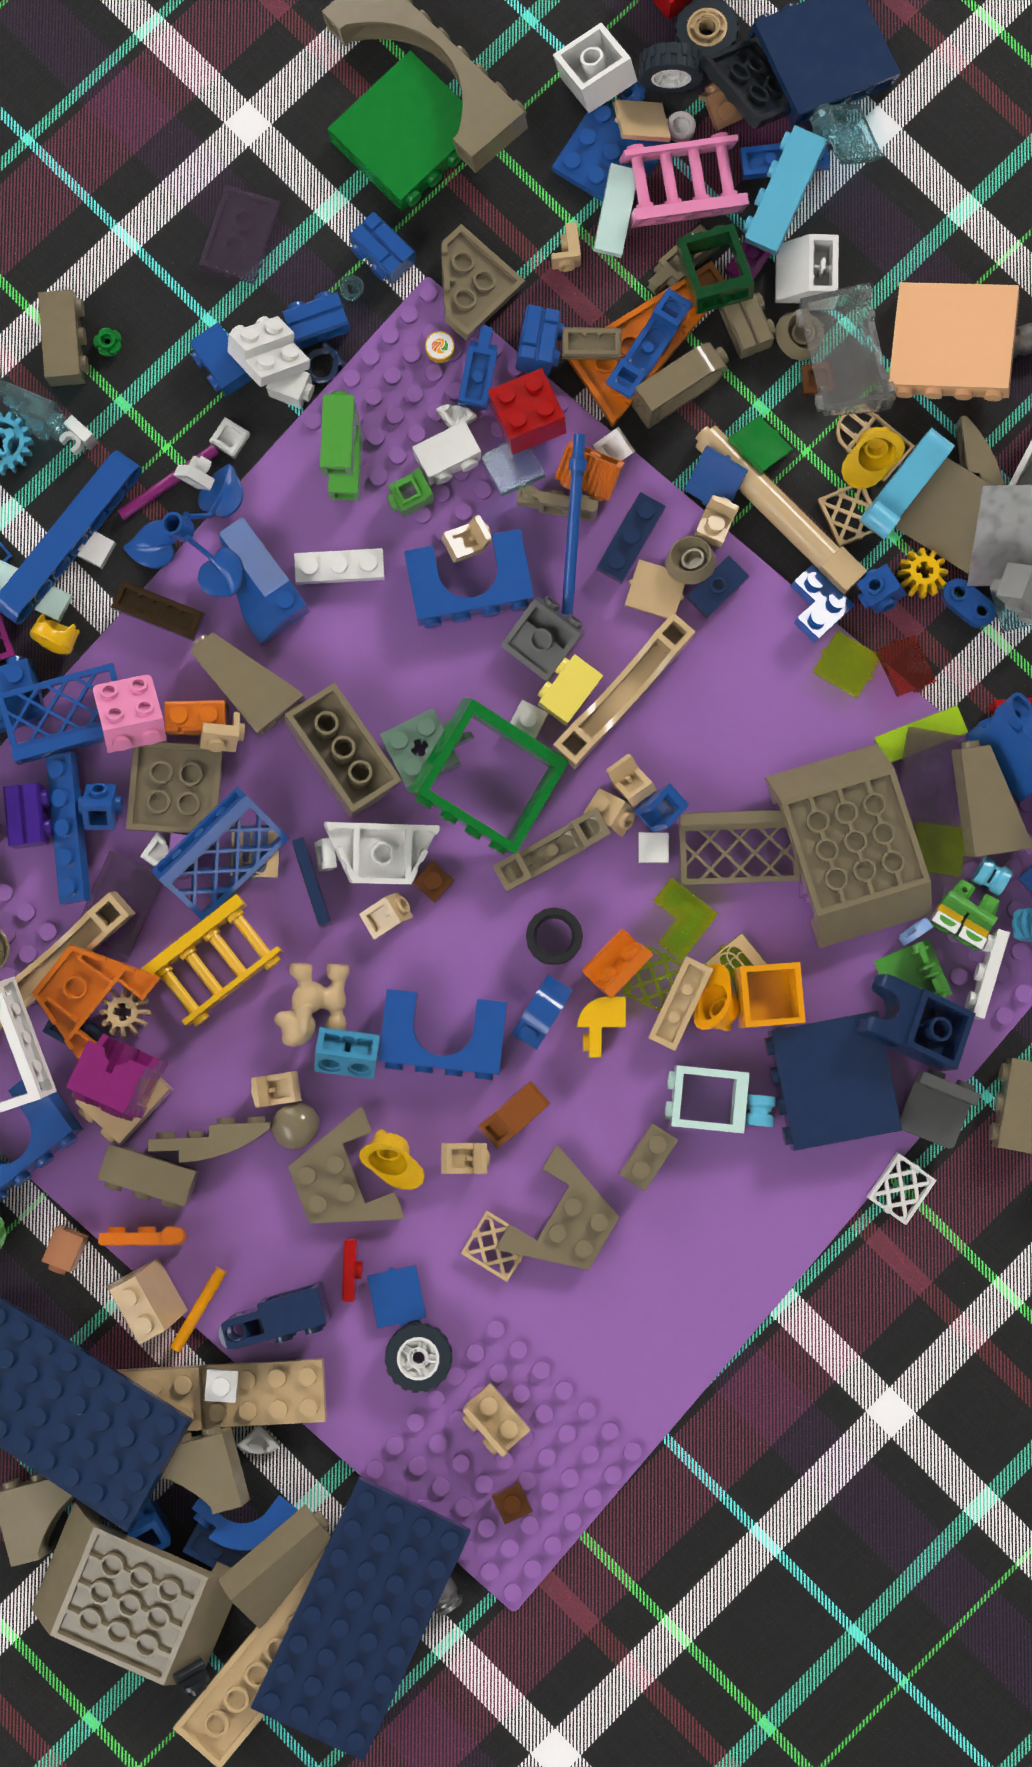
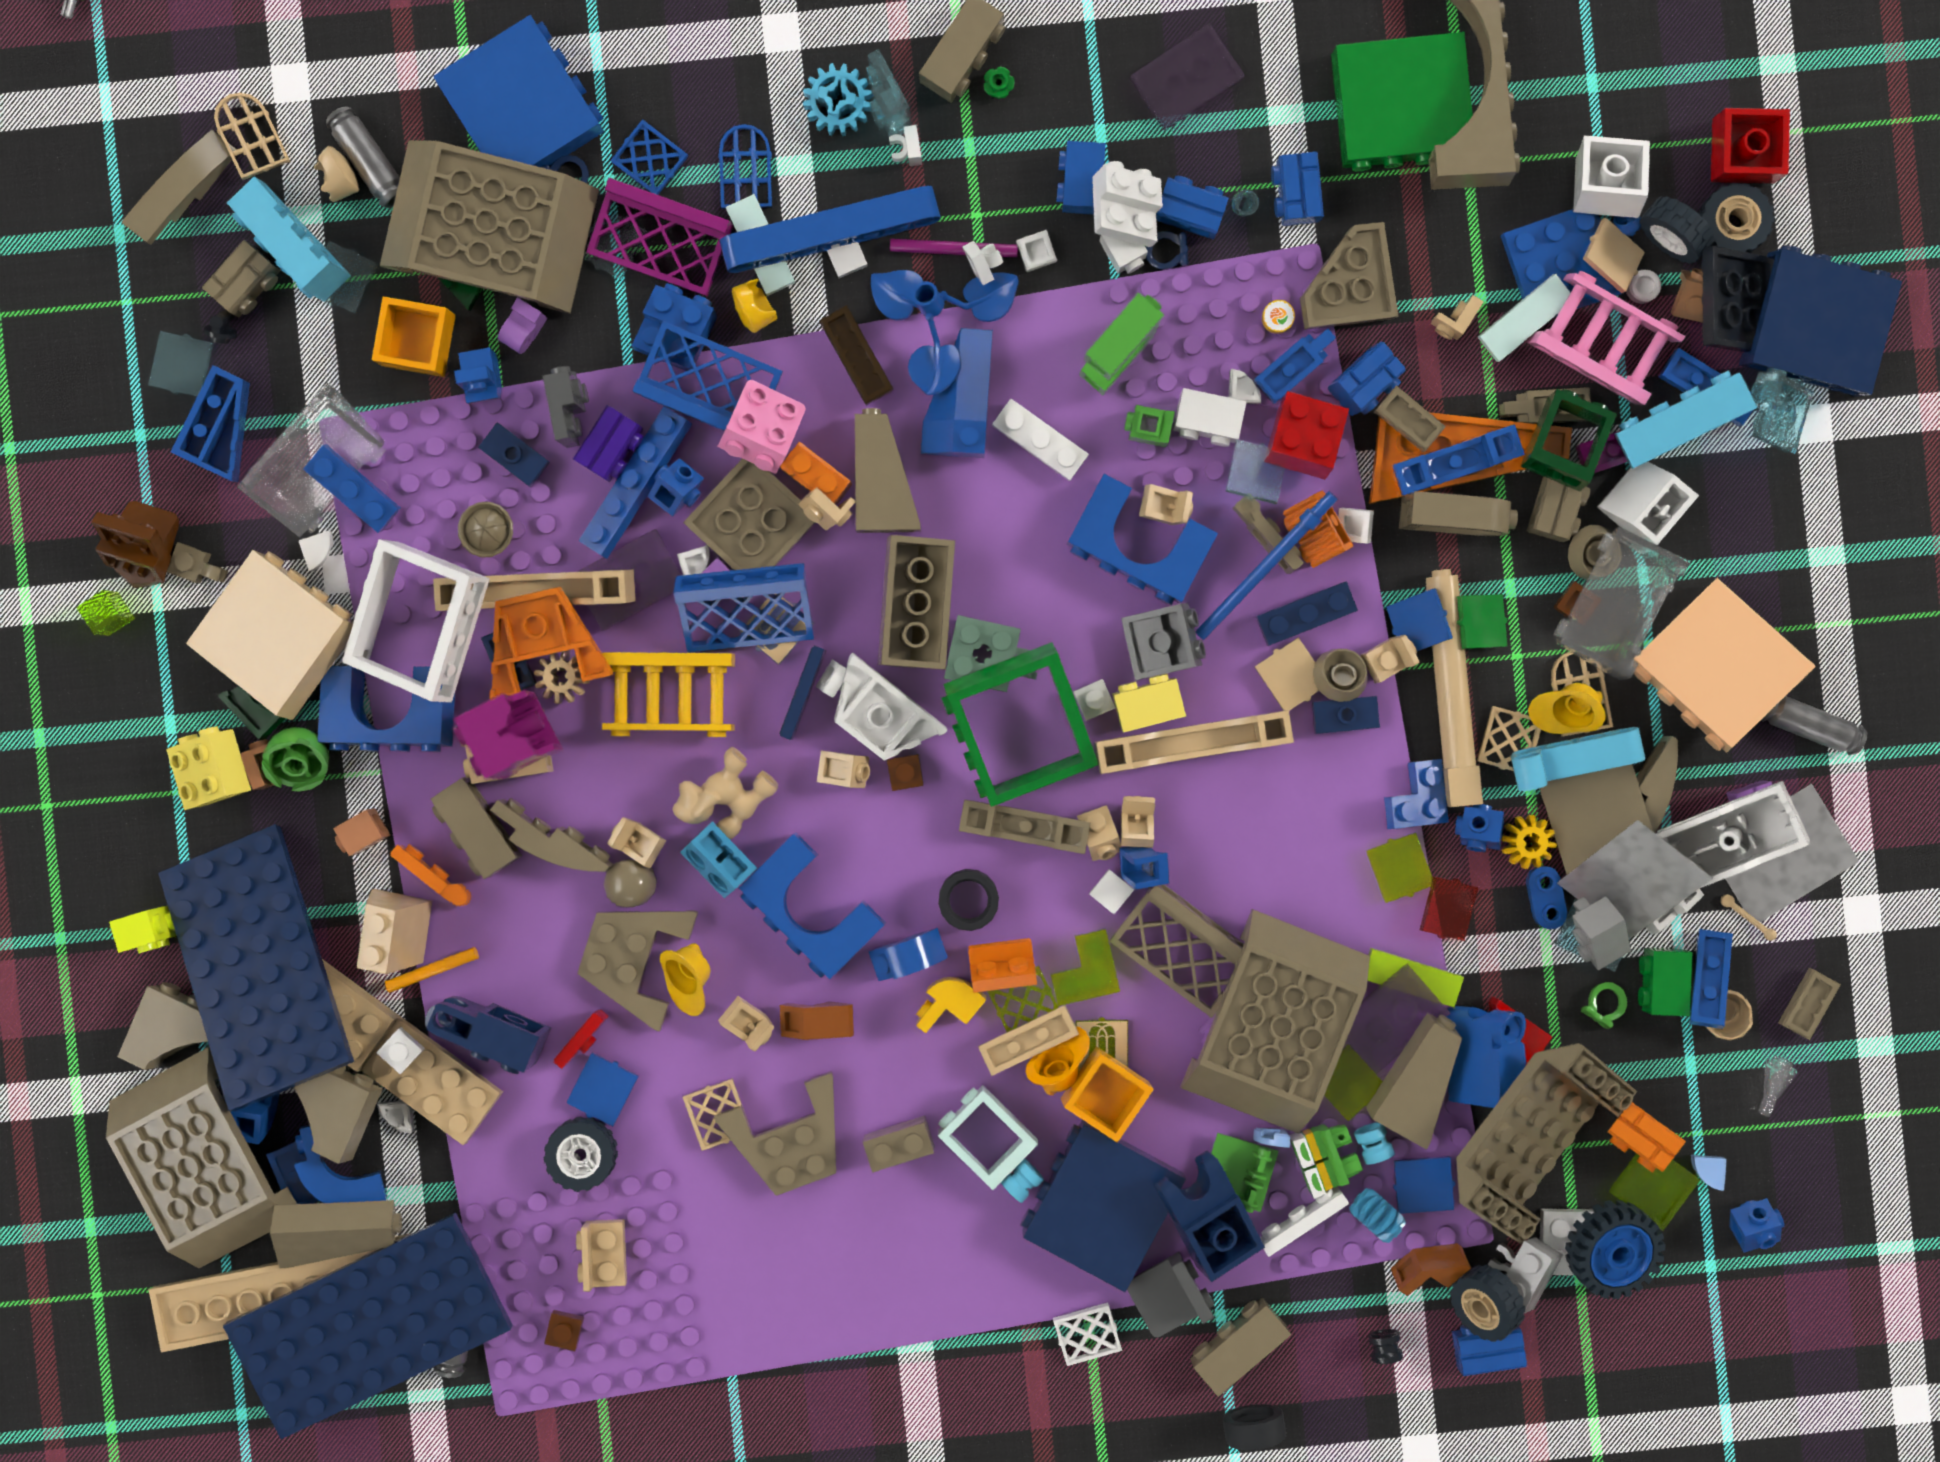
camera: 40 degrees right, 5 degrees up
(192, 1678) = (195, 1264): black plate -> none

